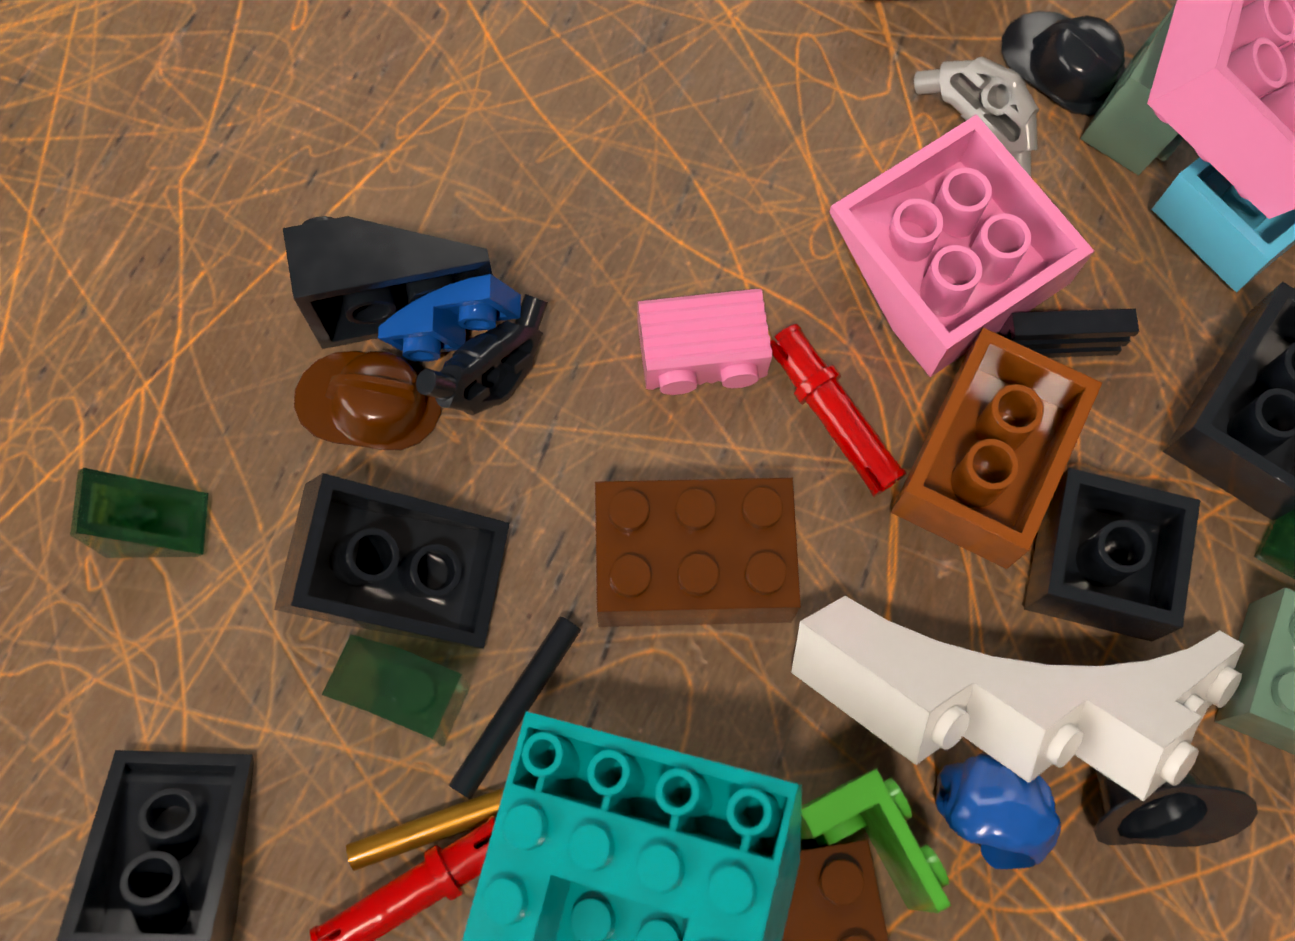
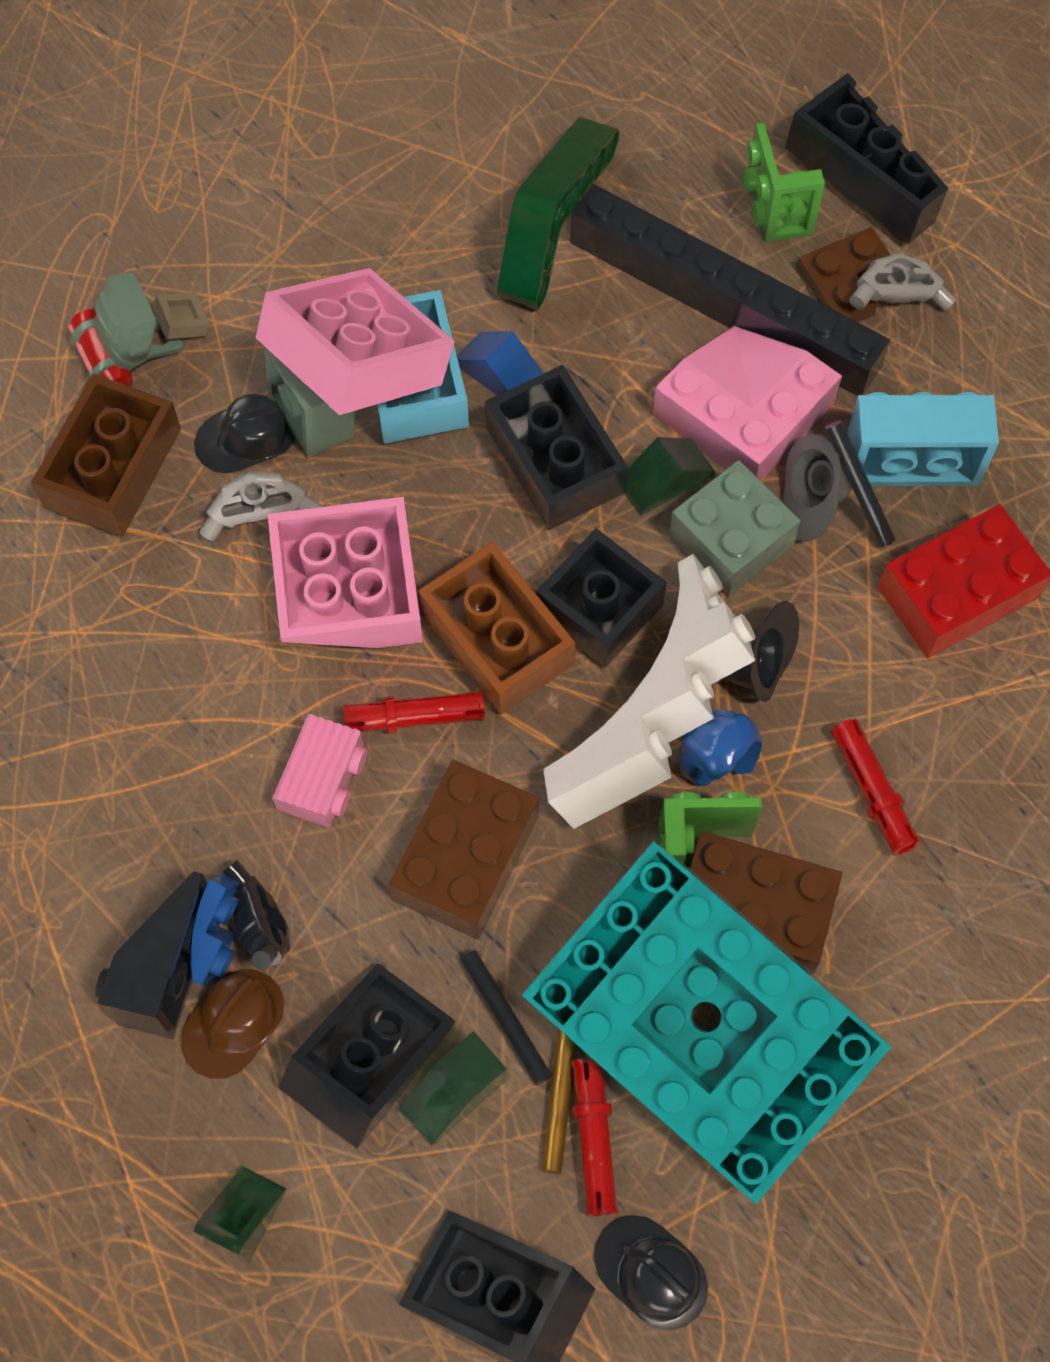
camera: 60 degrees left, 5 degrees down
(1073, 332) = (442, 541): black tile -> none

